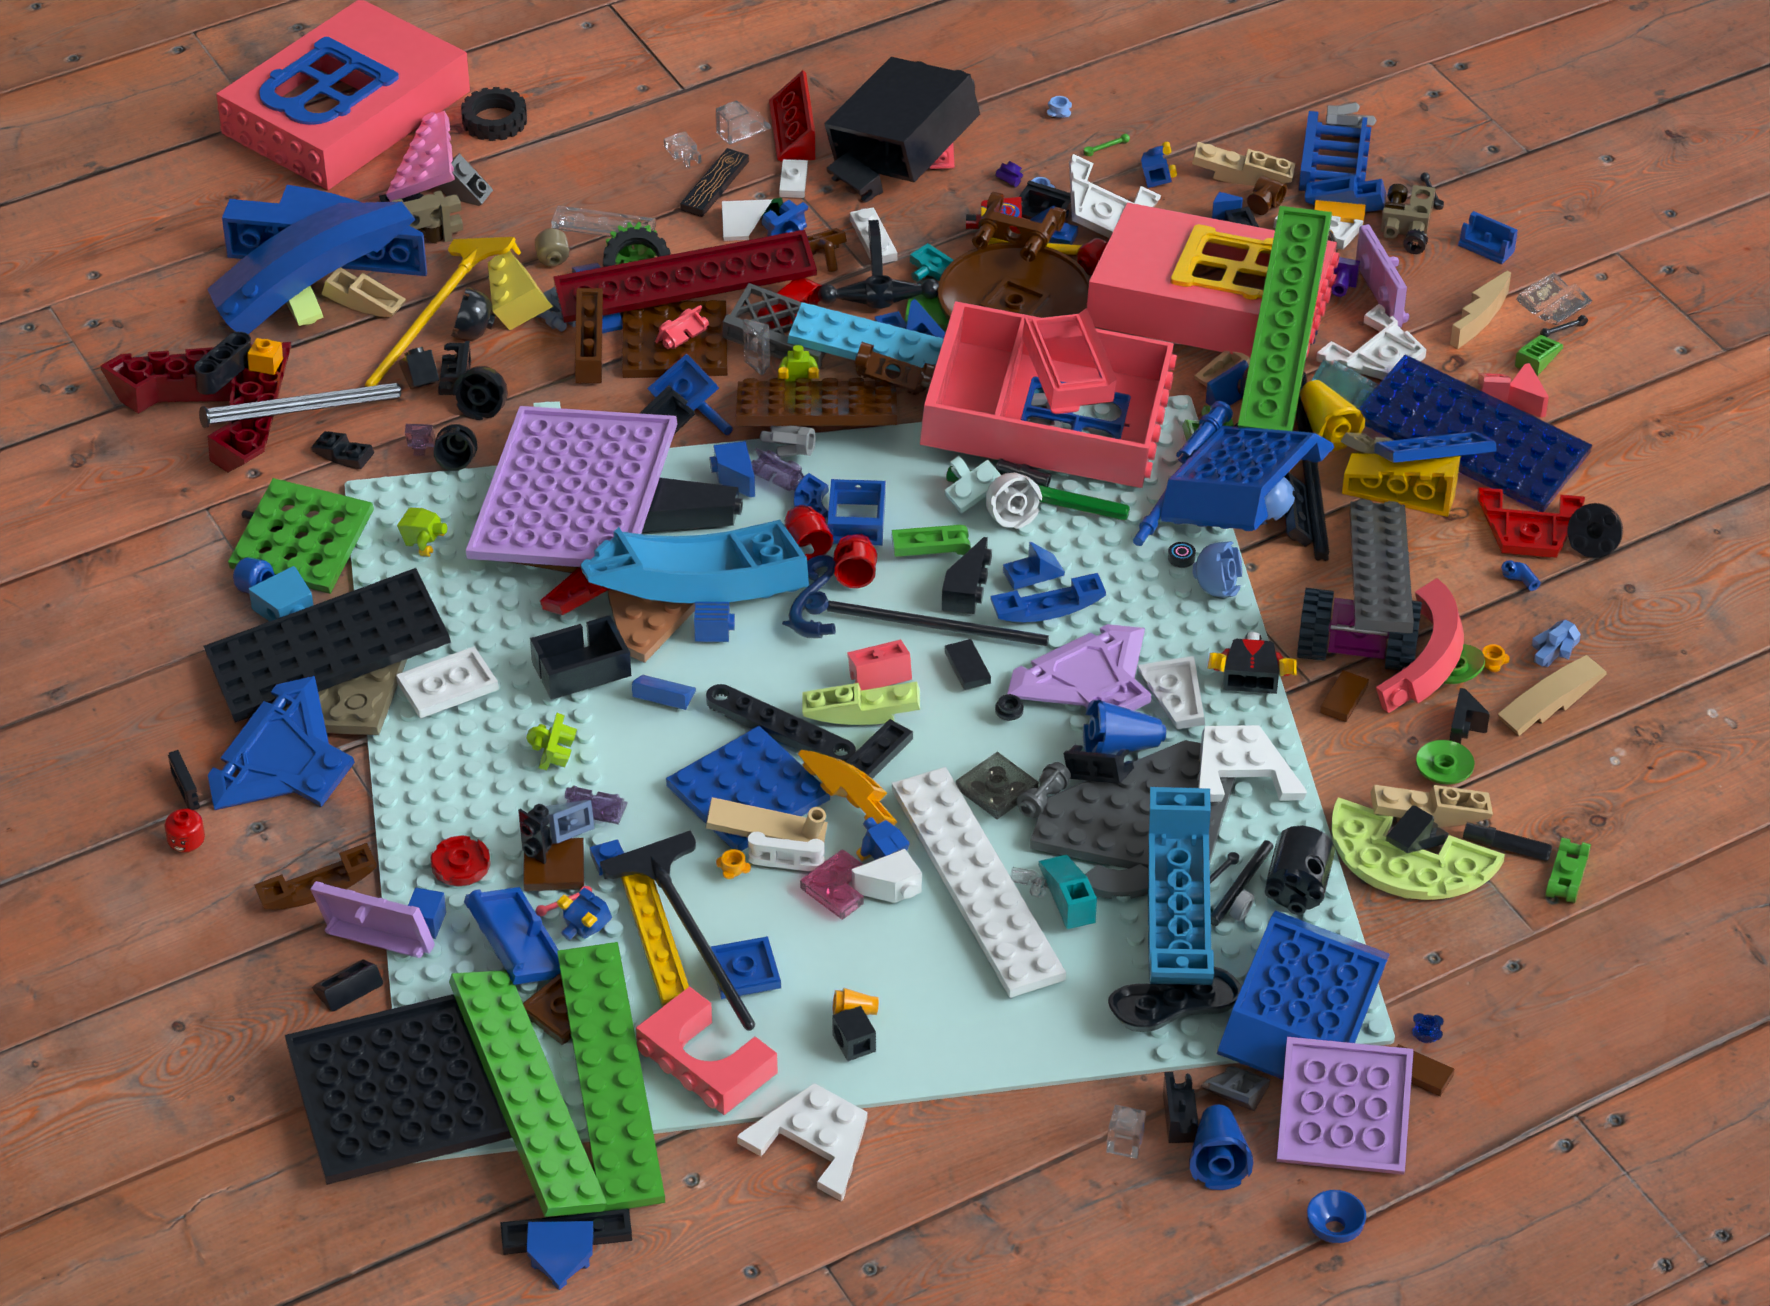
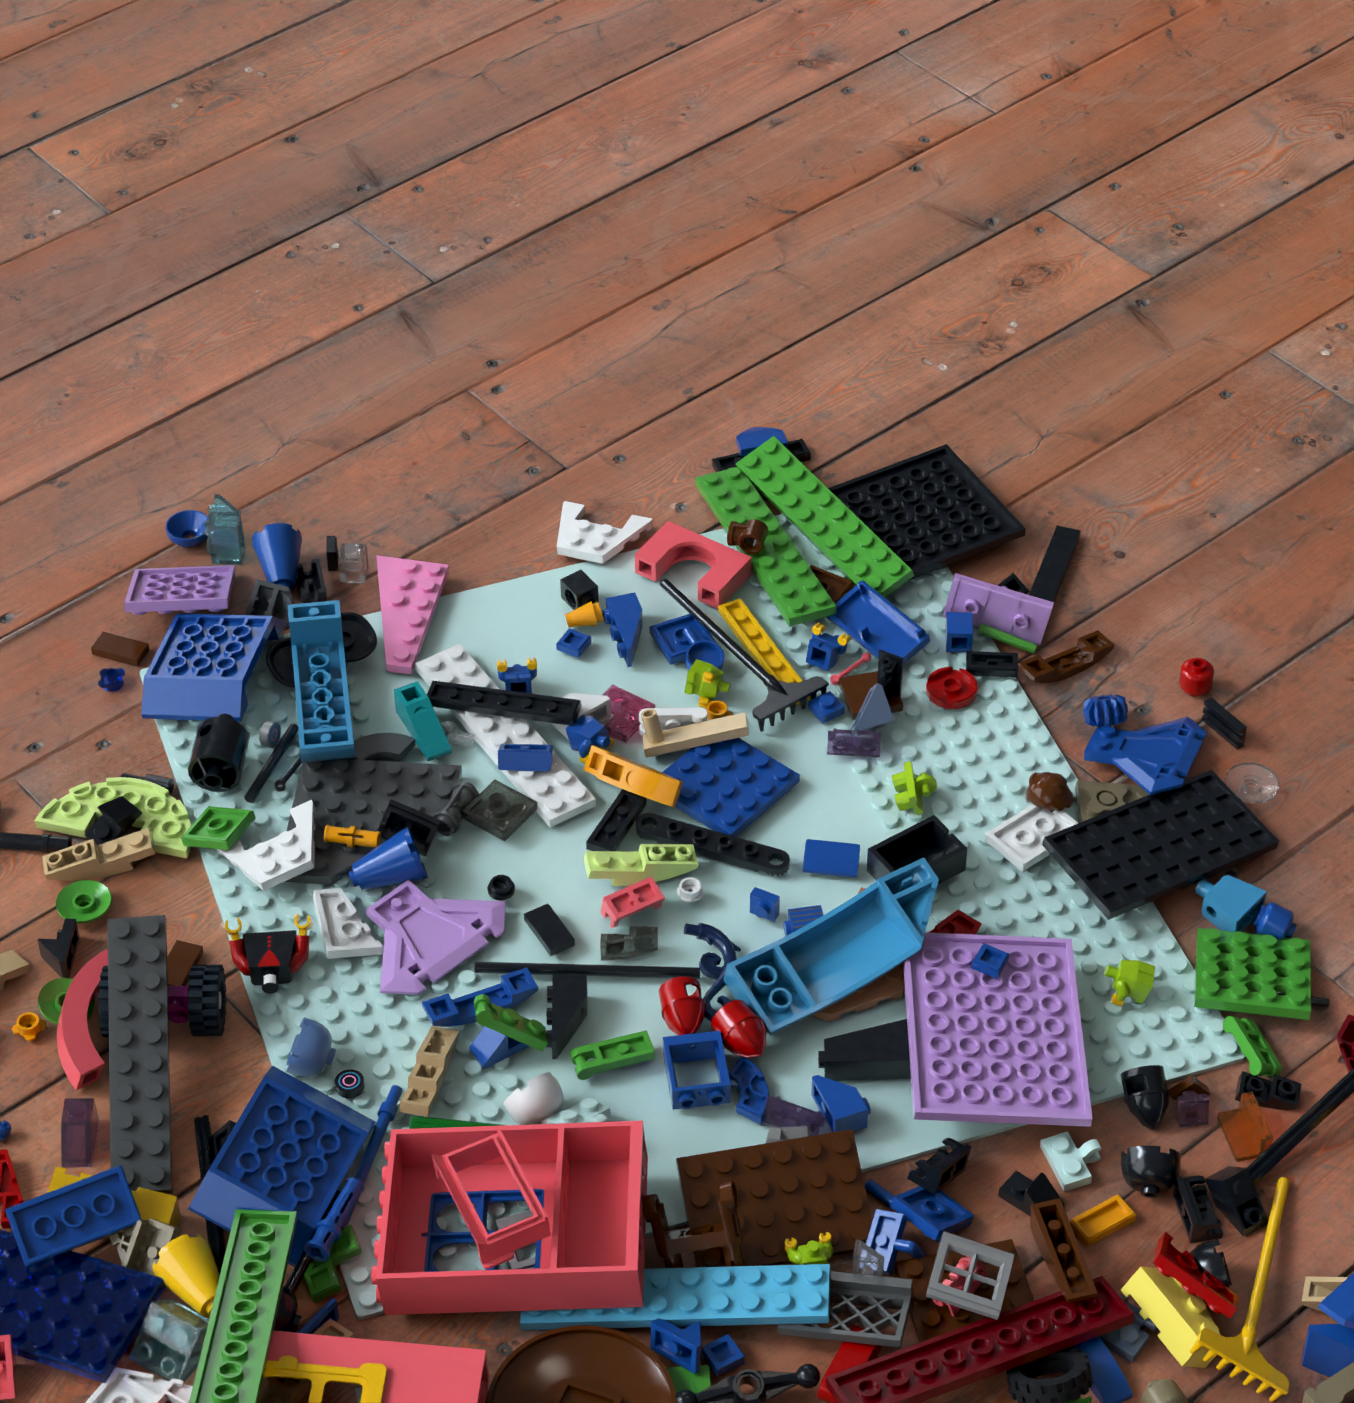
camera: 170 degrees right, 0 degrees up
(193, 711) = (1252, 782): none -> clear dish
(279, 997) = (1055, 563): none -> black tile
(297, 798) = (1105, 710): none -> blue gear
(337, 473) = (1253, 1046): none -> bright green plate
(380, 424) = (1246, 1129): none -> clear orange panel
(400, 885) = (992, 664): none -> black tile
(412, 454) = (1188, 1084): none -> reddish brown tile
(415, 707) = (1049, 791): none -> reddish brown hair
(497, 281) = (1185, 1270): none -> red wing
(538, 379) = (1102, 1220): none -> light orange tile
(554, 527) = (990, 961): none -> blue tile
(591, 398) = (1023, 1192): none -> black slope
(631, 1044) = (748, 536): none -> reddish brown piece
(704, 301) = (964, 1299): none -> light grey piece
(728, 373) = (887, 1240): none -> plate
(730, 927) = (702, 650): none -> blue piece
(735, 891) = (706, 682): none -> lime piece
(747, 648) = (764, 904): none -> blue plate
(806, 981) = (625, 622): none -> blue slope
(816, 677) = (690, 890): none -> white plate
(874, 980) = (573, 643): none -> blue tile
(892, 627) = (639, 942): none -> clear smoke slope
(950, 928) = (517, 677): none -> blue piece
(959, 825) = (525, 757): none -> blue slope
(974, 883) = (504, 703): none -> black tile
(1024, 548) = (510, 1023): none -> bright green plate
(1062, 1069) = (408, 603): none -> bright pink wing
(1108, 541) = (429, 1071): none -> tan slope
(1151, 1155) = (332, 553): none -> black tile
(1159, 758) = (366, 839): none -> light orange pin
(1287, 1183) = (224, 533): none -> clear light blue slope
(1301, 800) = (218, 828): none -> bright green tile
(1377, 893) = (167, 783): none -> black axle
(1436, 558) = (78, 1132): none -> clear purple slope

